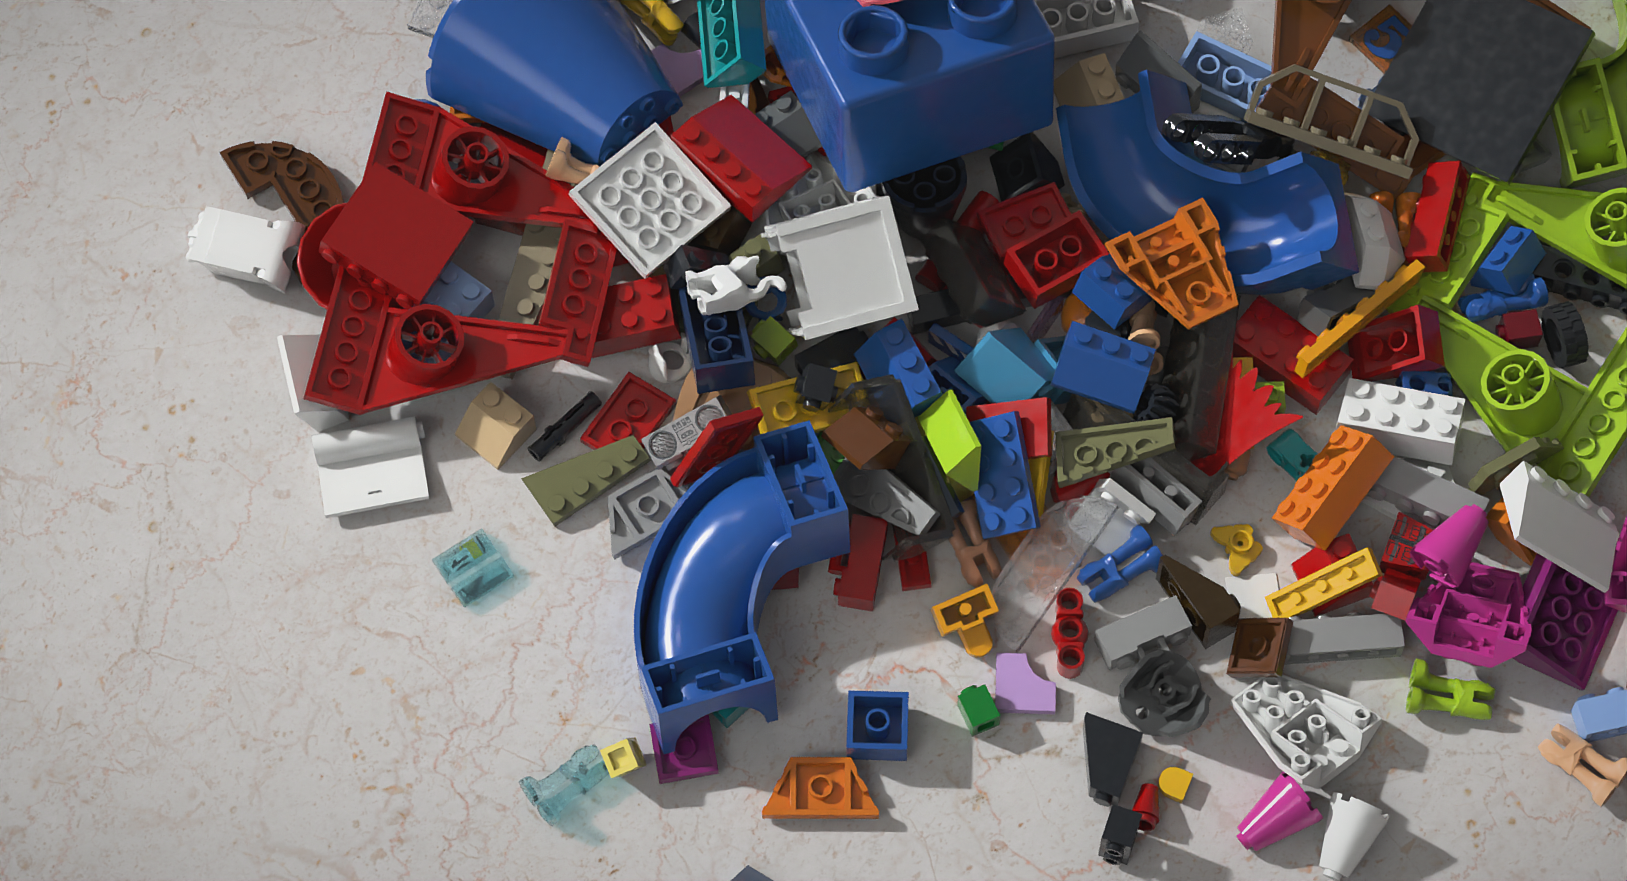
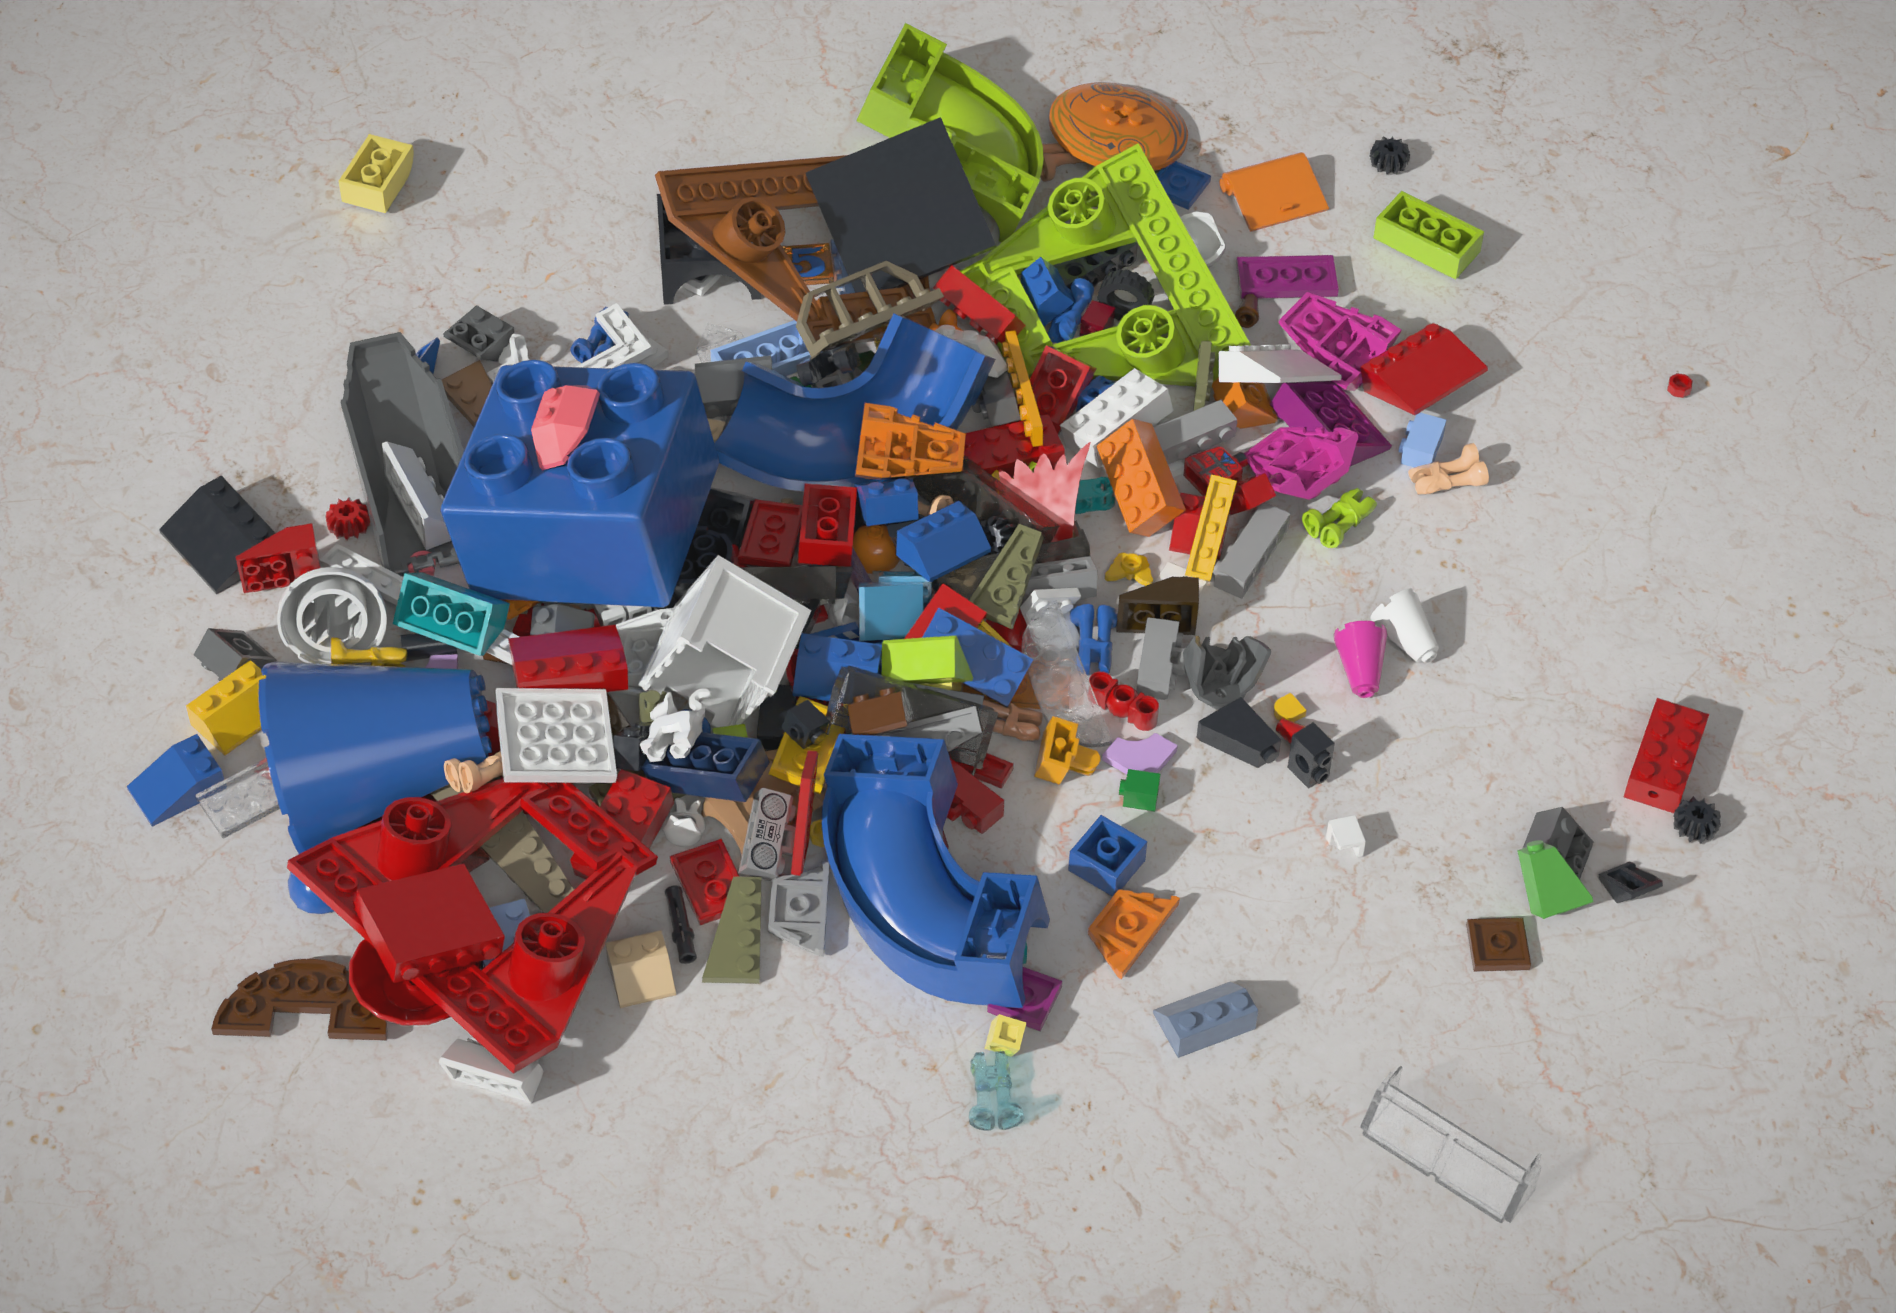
camera: 60 degrees left, 15 degrees down
(245, 246) = (324, 1052): white piece -> none
(371, 466) = (599, 1078): white door -> none
(472, 568) = (751, 1056): clear light blue slope -> none
(1259, 647) = (1226, 595): reddish brown tile -> none
(1306, 727) = (1304, 604): white wedge -> none
(1452, 546) = (1244, 437): dark pink cone -> none

